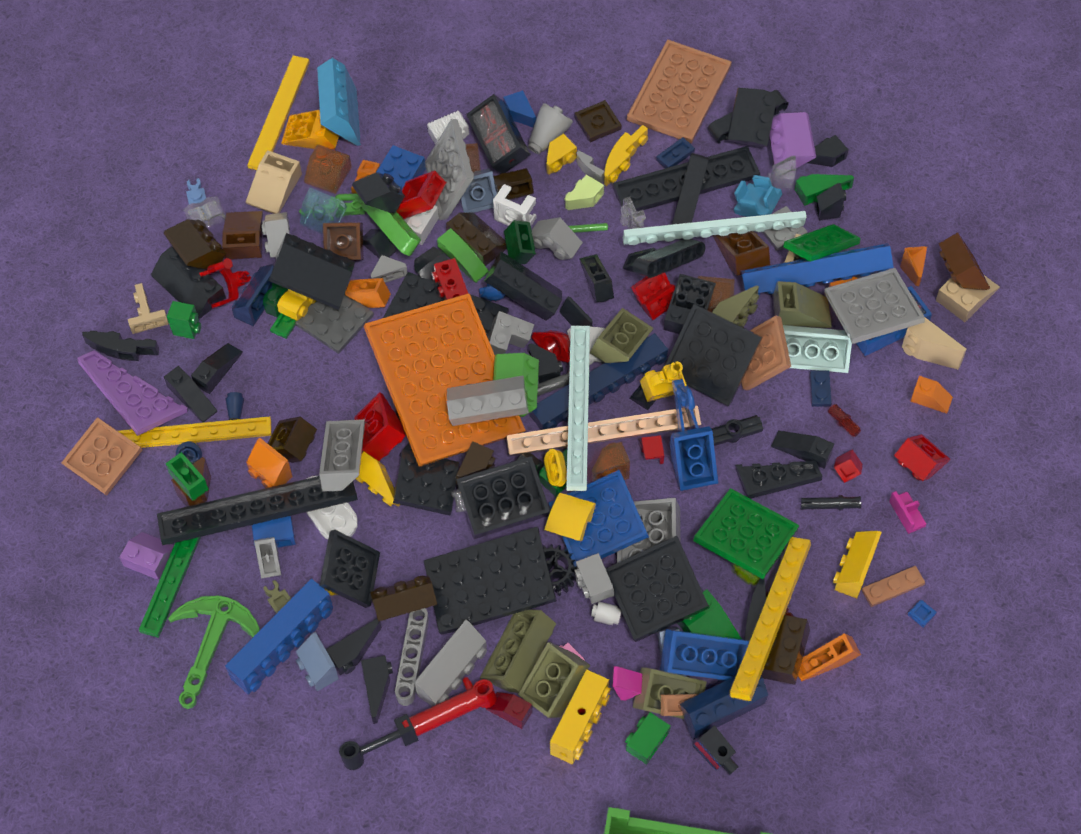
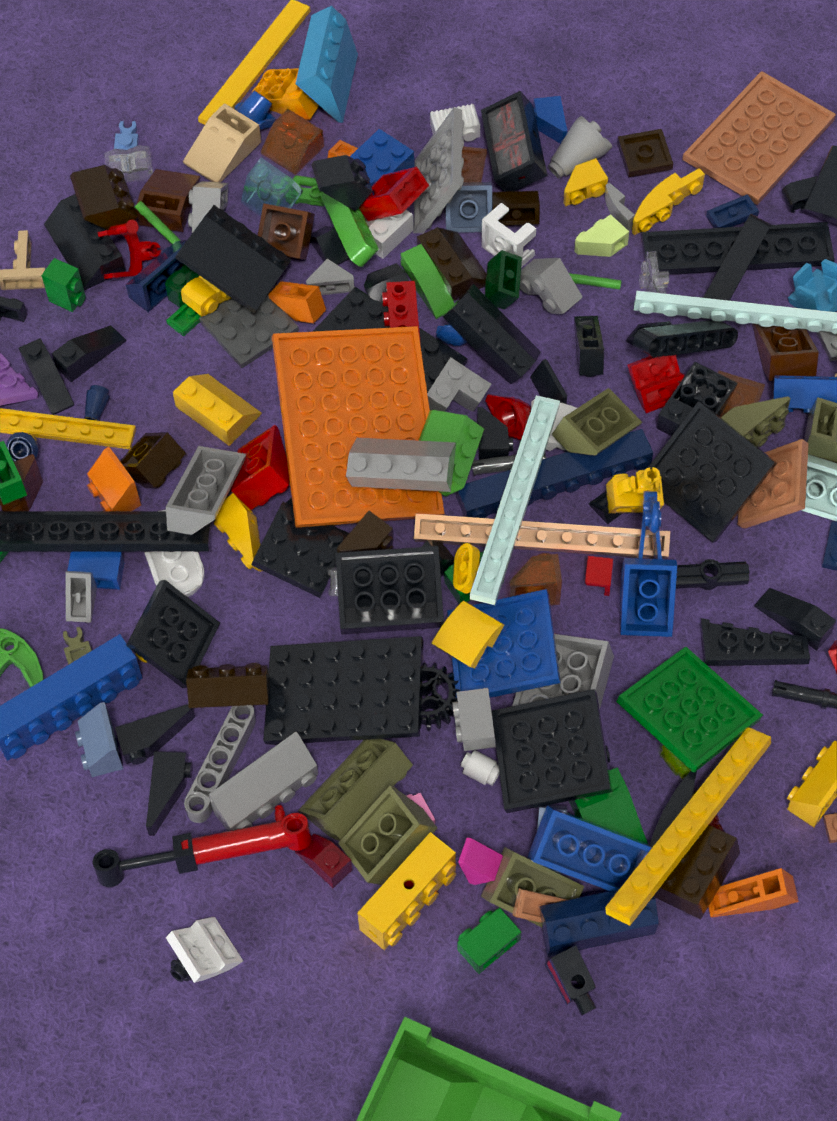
camera: 15 degrees right, 0 degrees up
(243, 256) = (156, 222): none -> bright green bar
(292, 149) = (256, 109): none -> blue piece
(328, 388) = (215, 407): none -> yellow slope
(429, 816) = (178, 971): none -> black plate
(441, 797) = (204, 949): none -> white slope

